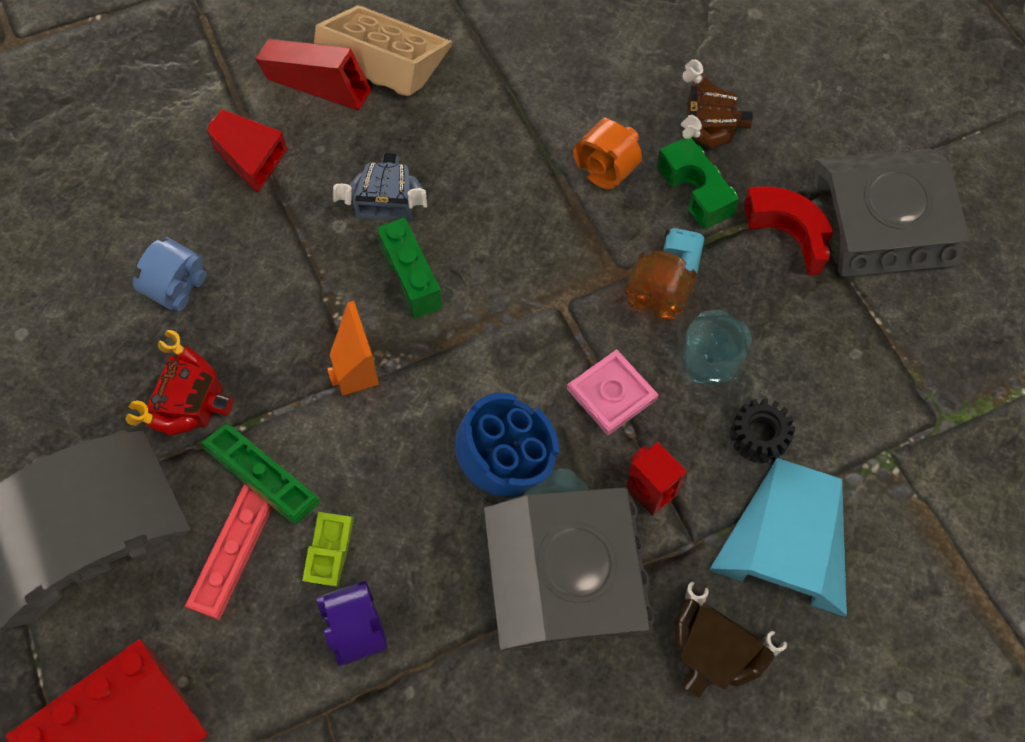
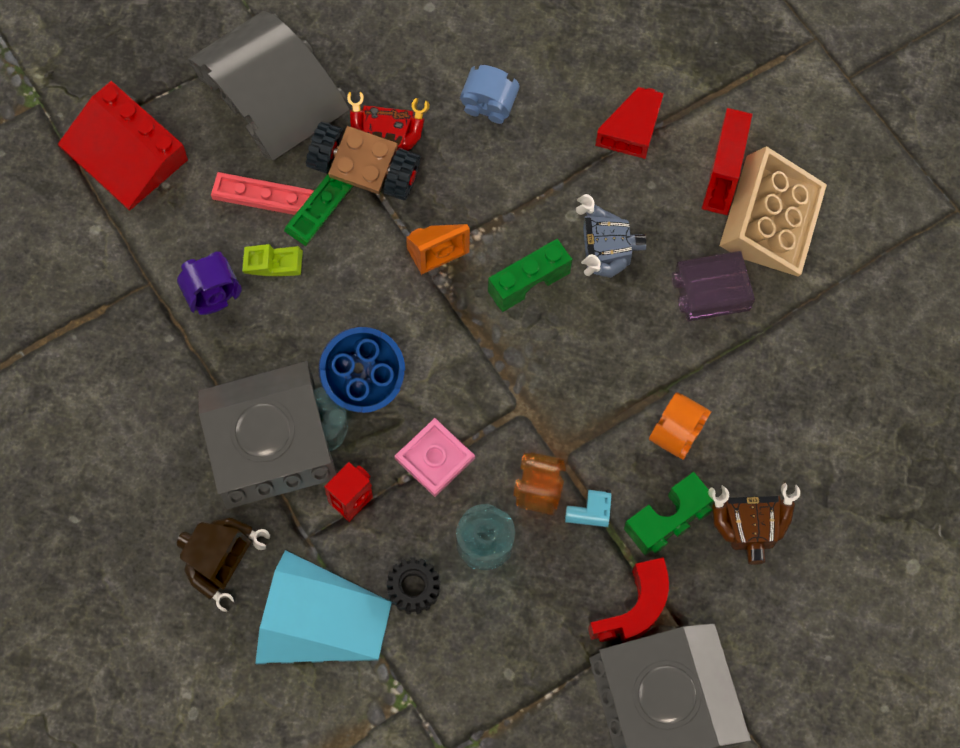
camera: 80 degrees right, 5 degrees up
(222, 419) = (362, 160): none -> plate
(453, 108) = (713, 286): none -> clear purple brick

